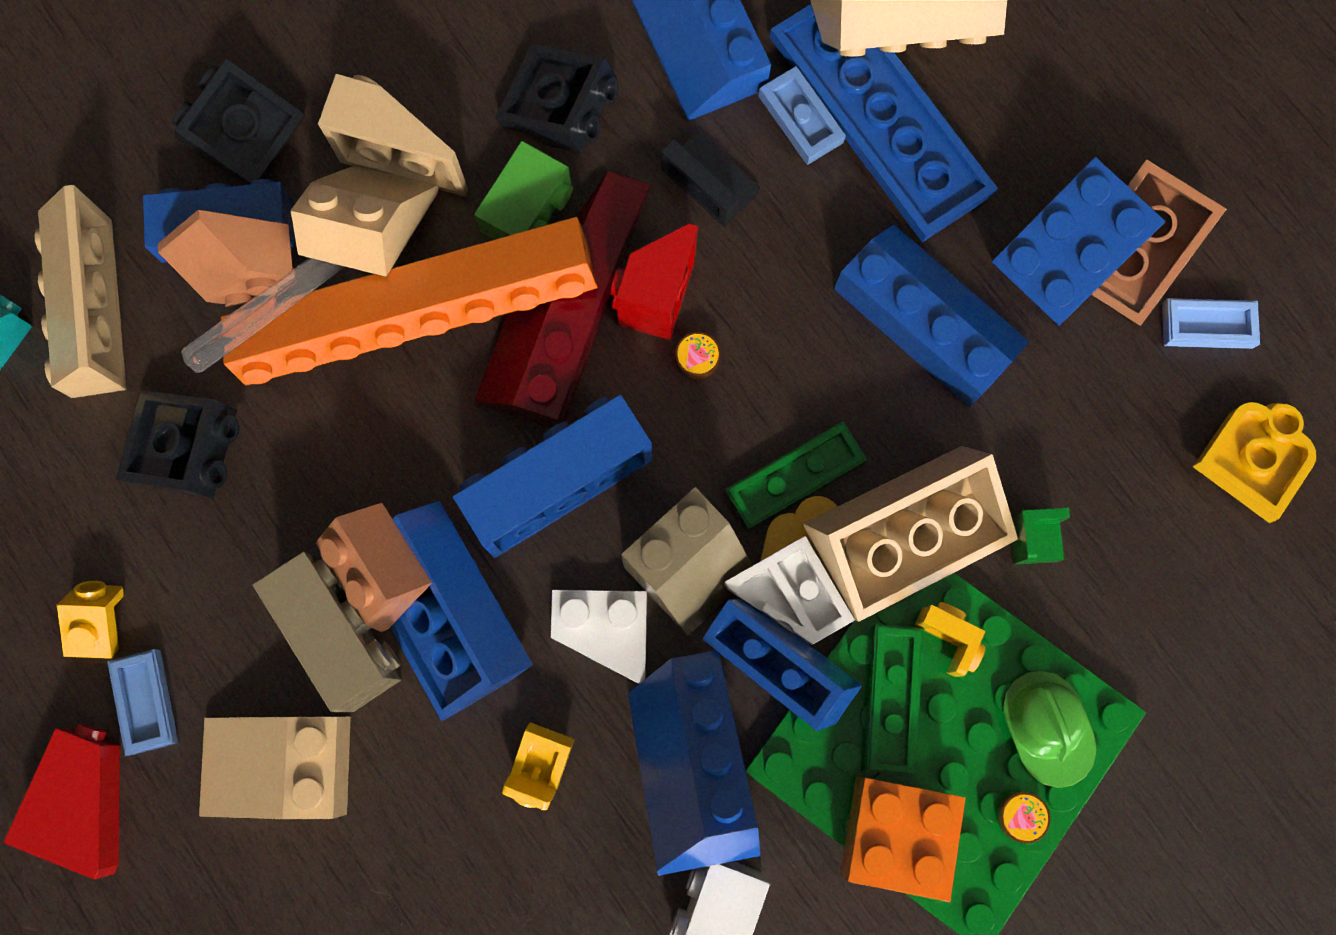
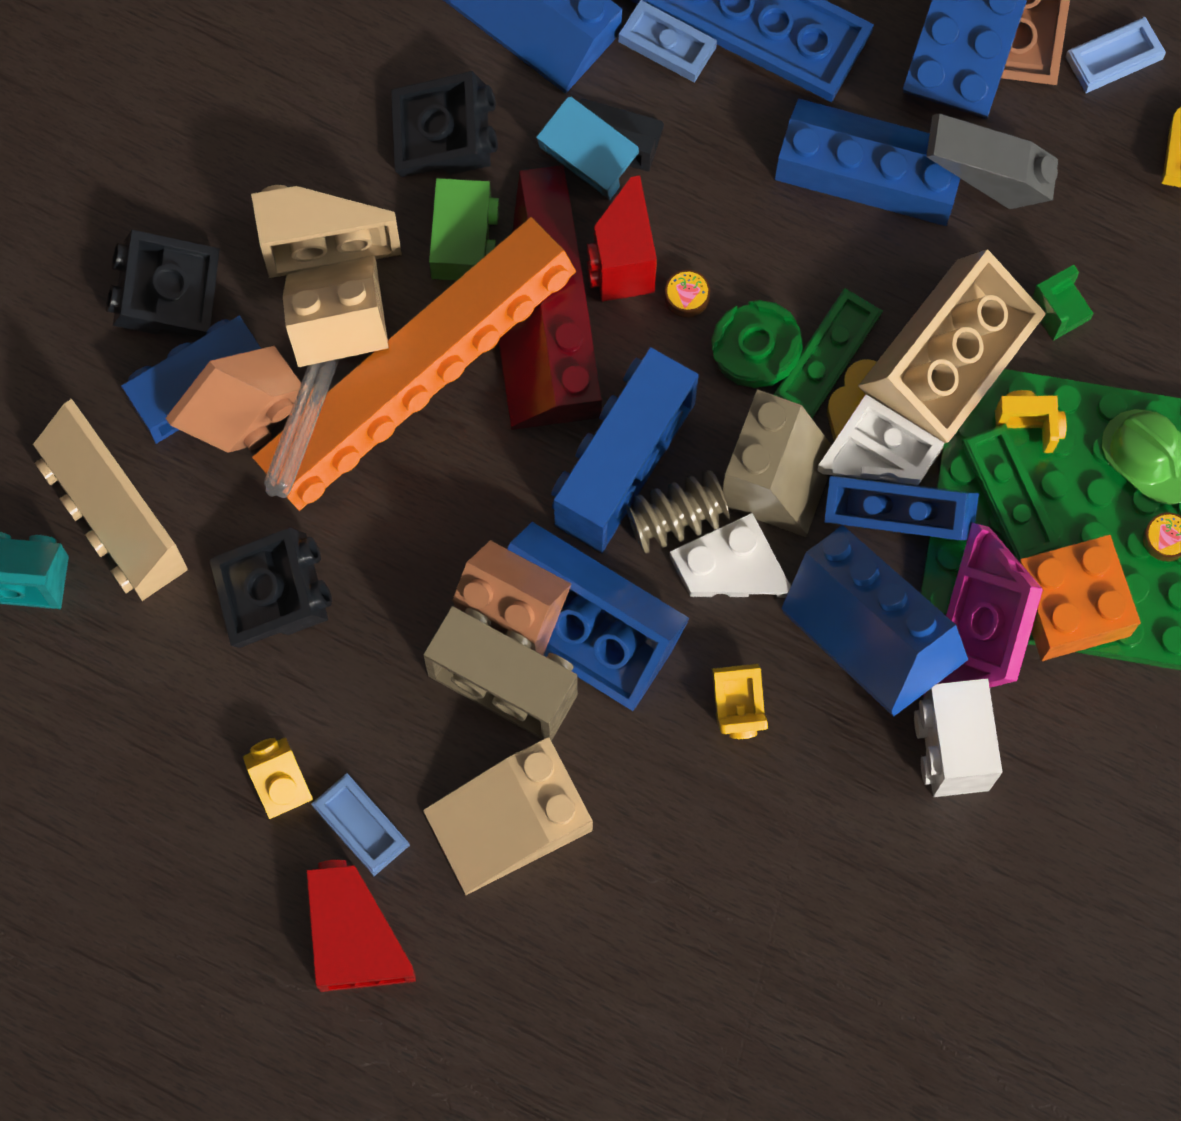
camera: 25 degrees left, 5 degrees down
(574, 557) = (677, 510): none -> dark tan piece
(675, 175) = (587, 146): none -> dark azure panel
(735, 434) = (757, 344): none -> green tile
(811, 811) = (992, 609): none -> dark pink wing
(1041, 371) = (993, 162): none -> dark grey slope

